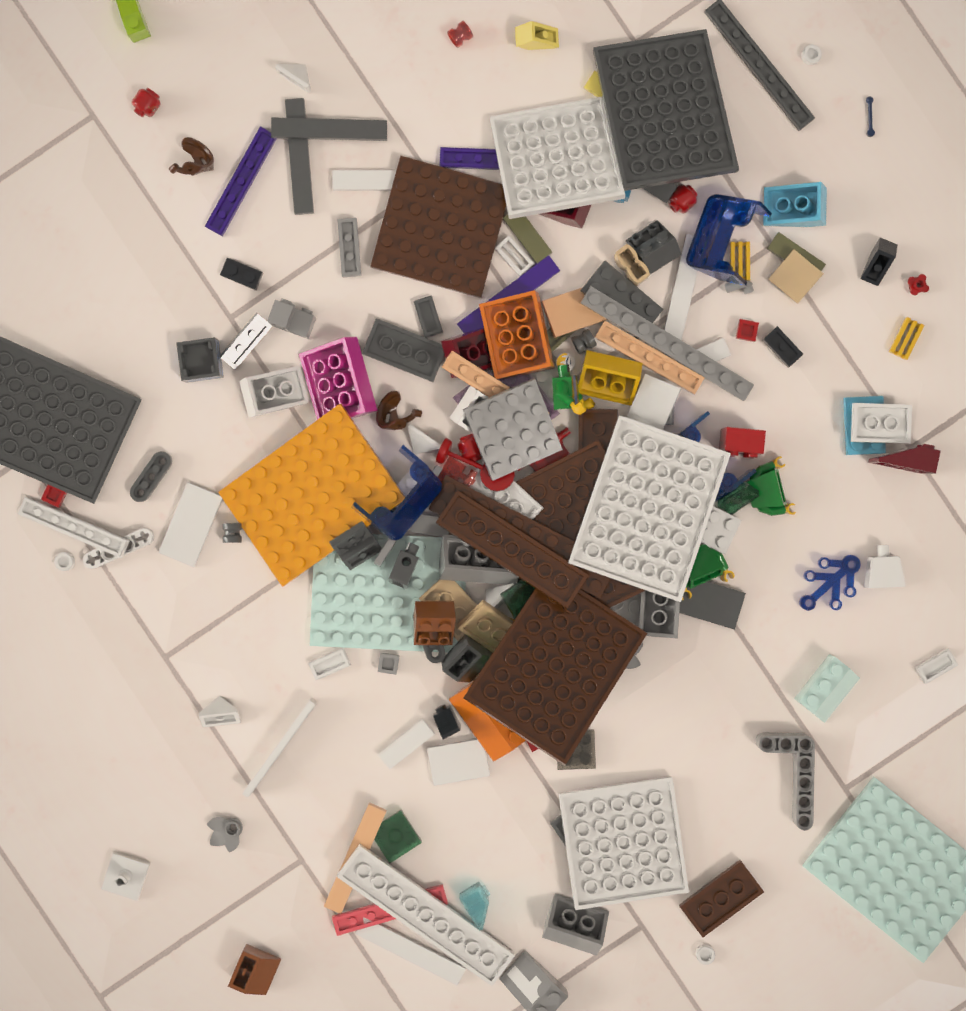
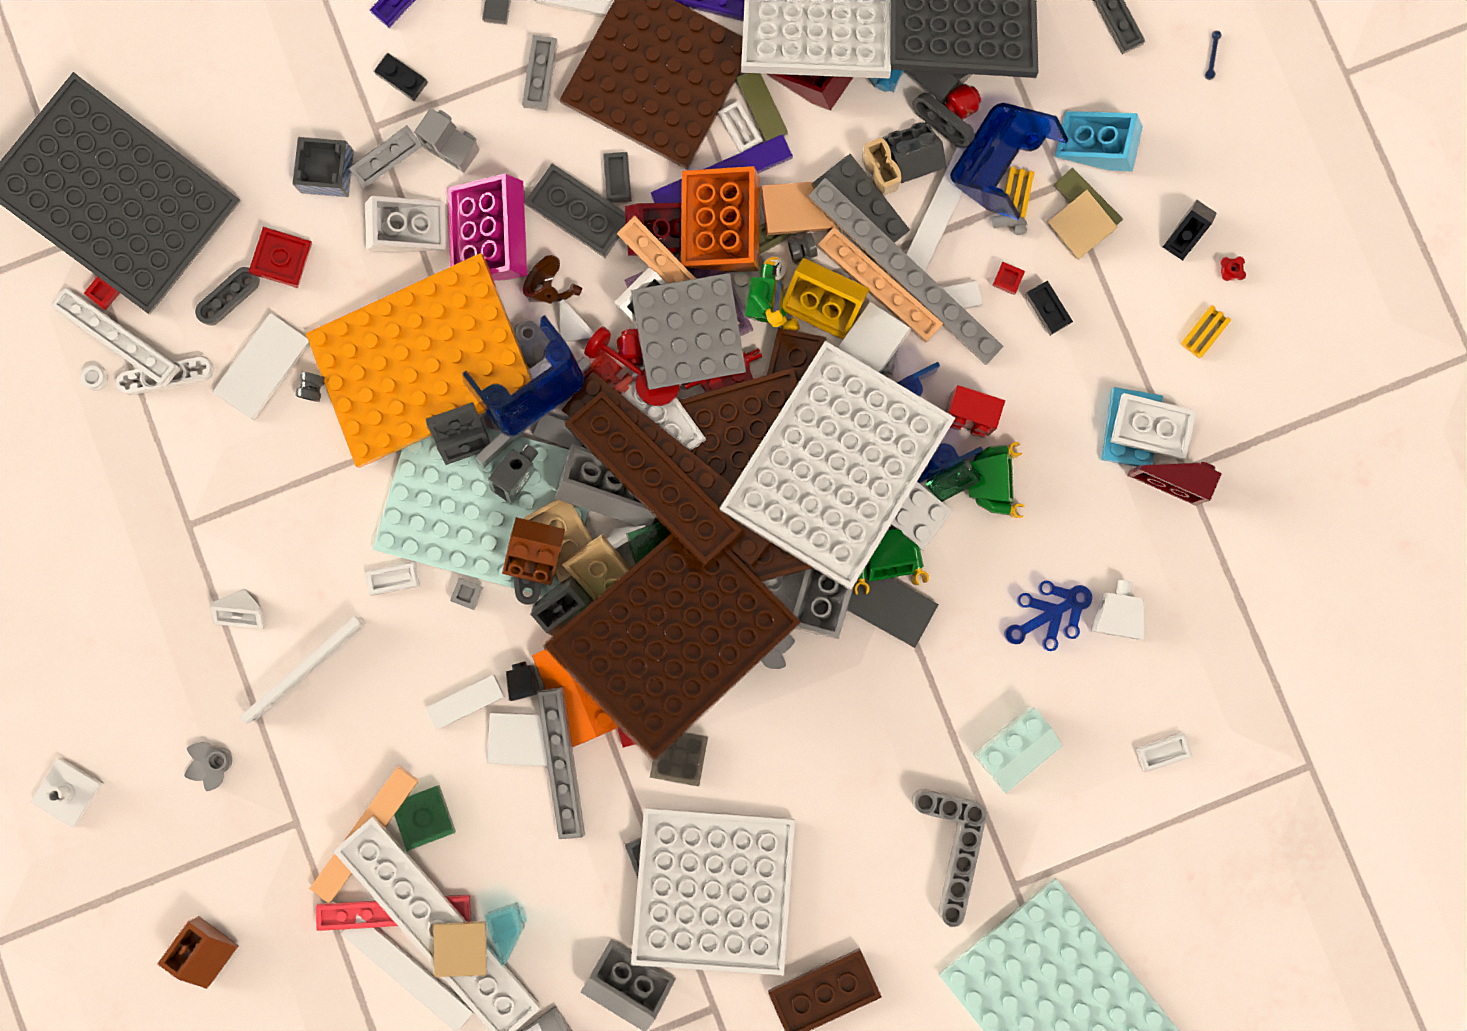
camera: 20 degrees right, 5 degrees down
(184, 437) = (280, 257): none -> red tile
(395, 463) = (534, 346): none -> light grey plate
(447, 926) = (460, 949): none -> tan tile
(489, 774) = (561, 763): none -> light grey tile
(671, 217) = (943, 120): none -> dark grey plate

